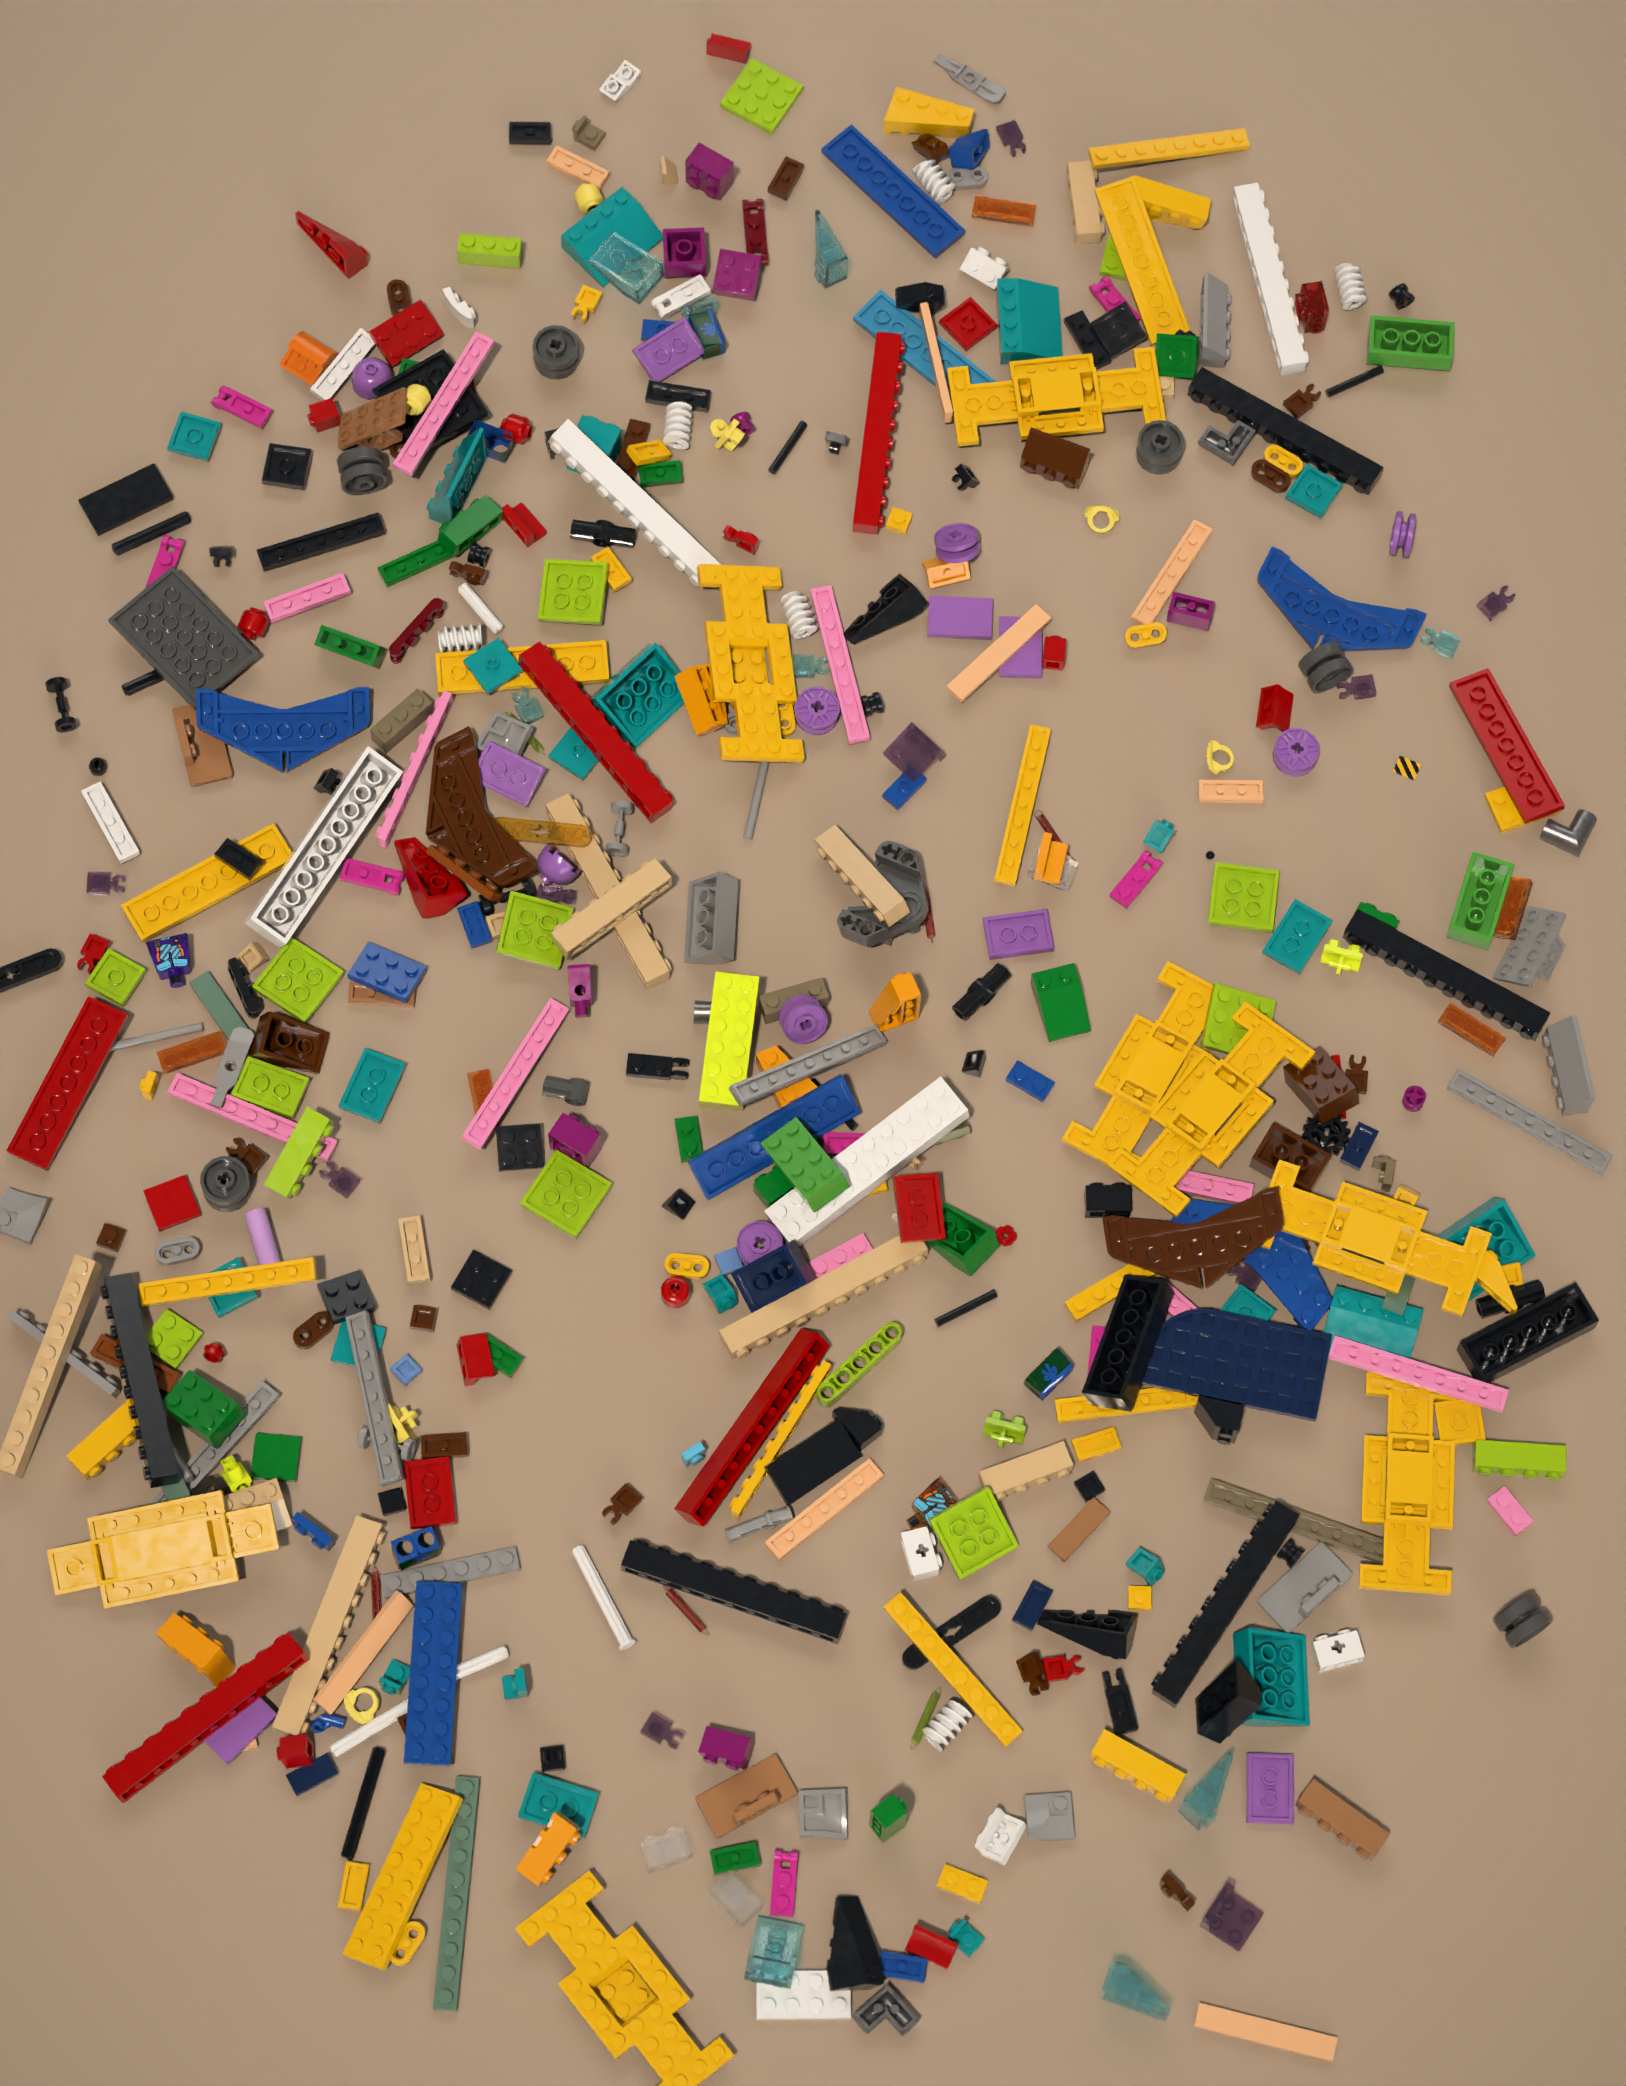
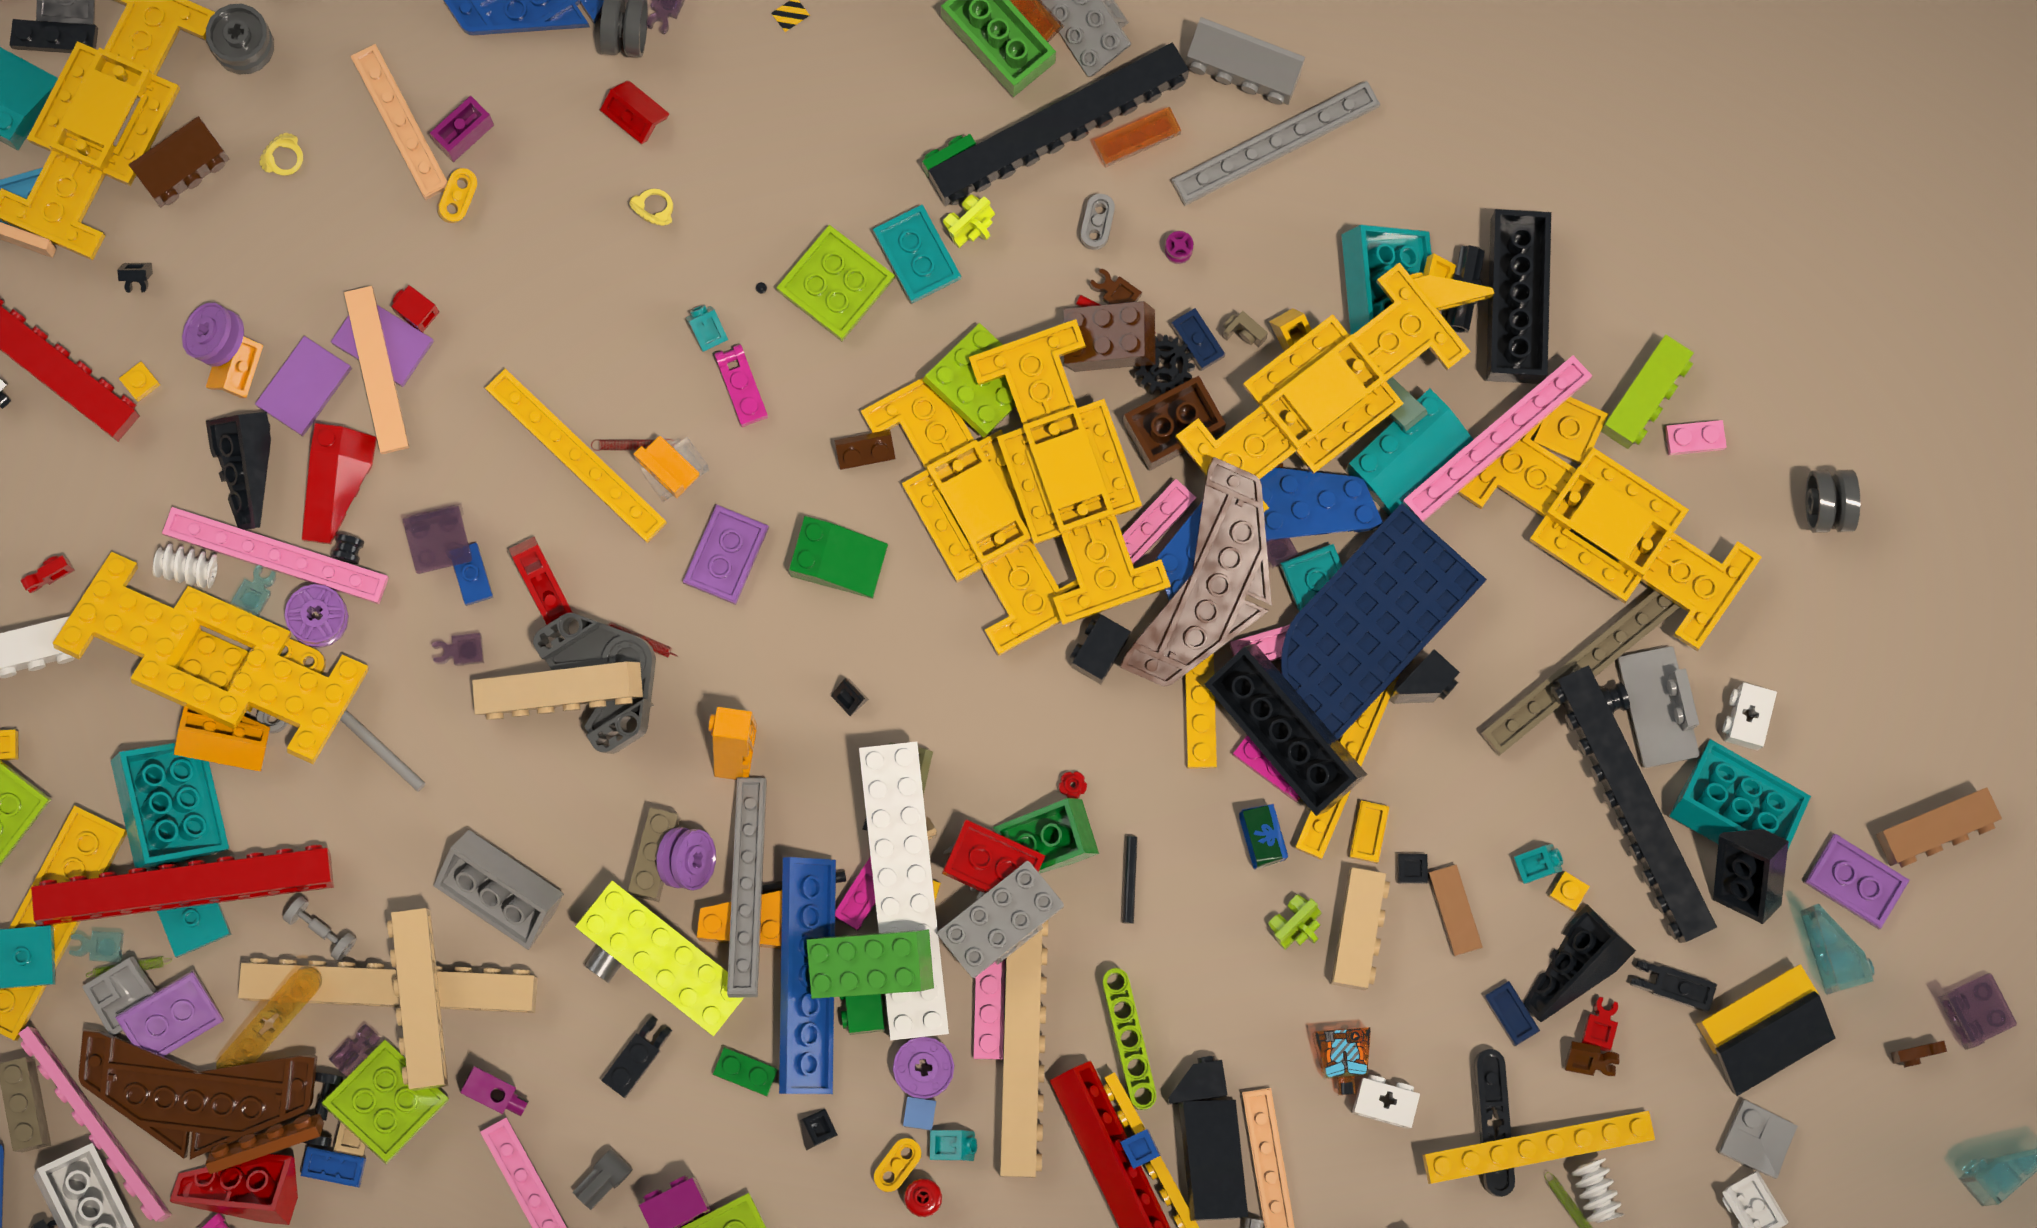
camera: 60 degrees left, 10 degrees up
(555, 867) = (322, 1030): medium lavender cylinder -> none
(773, 1276) = (974, 1075): dark blue slope -> none
(790, 1406) = (1140, 1148): none -> blue plate
(851, 811) = (464, 649): none -> plate
(884, 1231) = (1001, 920): none -> light grey bracket
(915, 668) = (335, 473): none -> red wedge
(928, 828) = (540, 580): none -> red slope
(973, 1532) = (1399, 1030): lime plate -> none
(981, 992) = (771, 637): black piece -> none
(1030, 1081) = (907, 647): blue plate -> none
(1121, 1788) = (1775, 1043): none -> black tile
(1143, 978) = (865, 449): none -> reddish brown plate
(1230, 791) = (700, 218): light nougat tile -> none
(1307, 752) = (700, 135): medium lavender wheel -> none
(1395, 1037) = (1097, 222): none -> light grey plate

